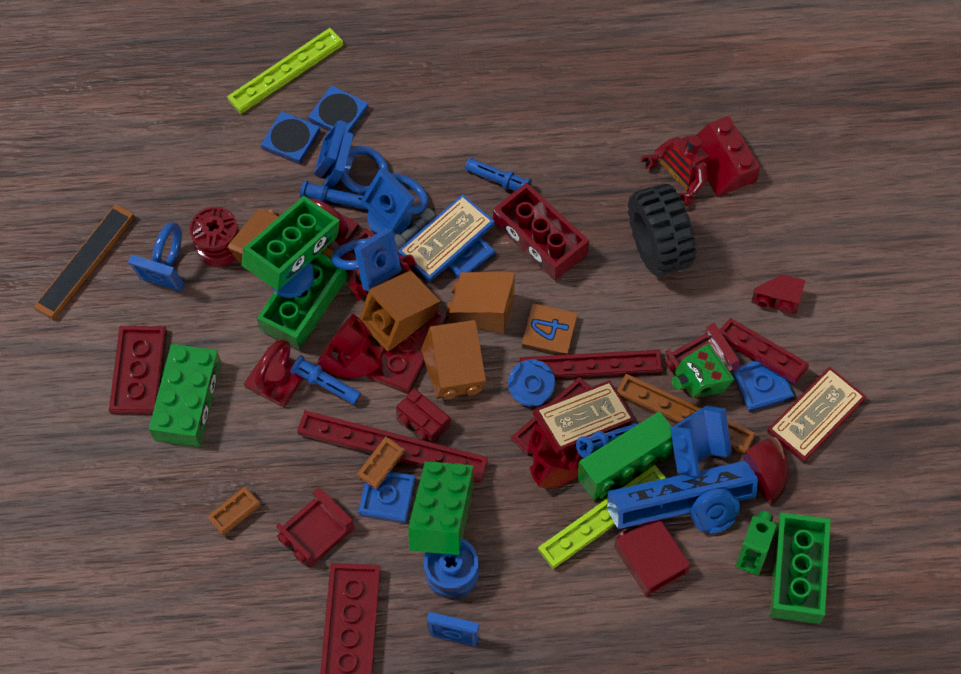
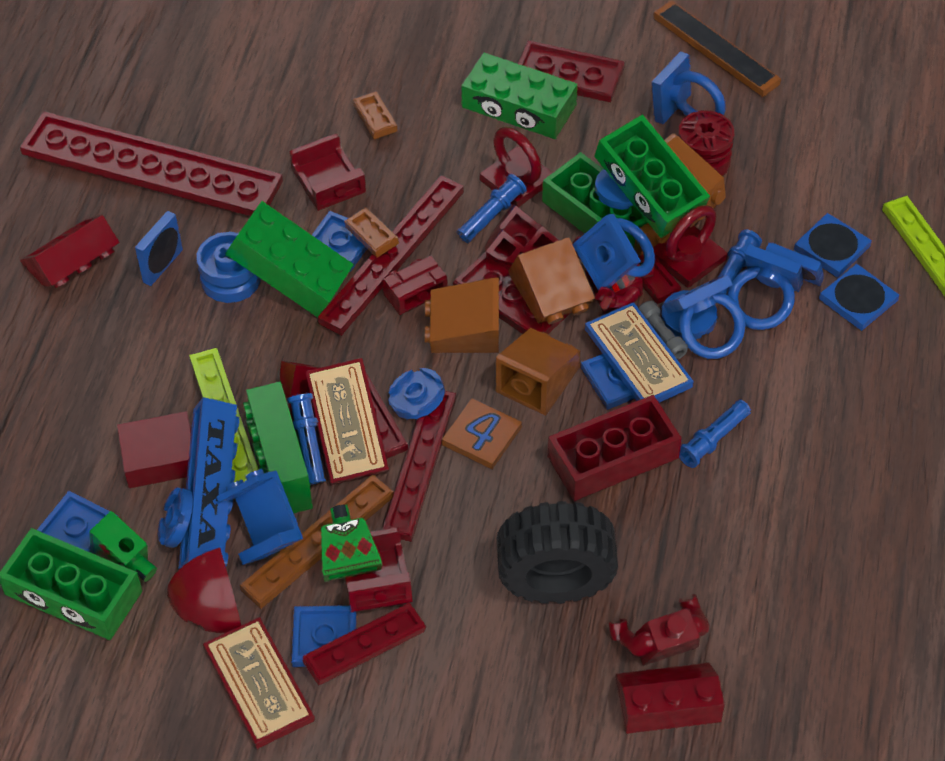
camera: 105 degrees right, 10 degrees down
(741, 596) = (73, 520): none -> blue tile
(780, 294) = (435, 694): dark red slope -> none

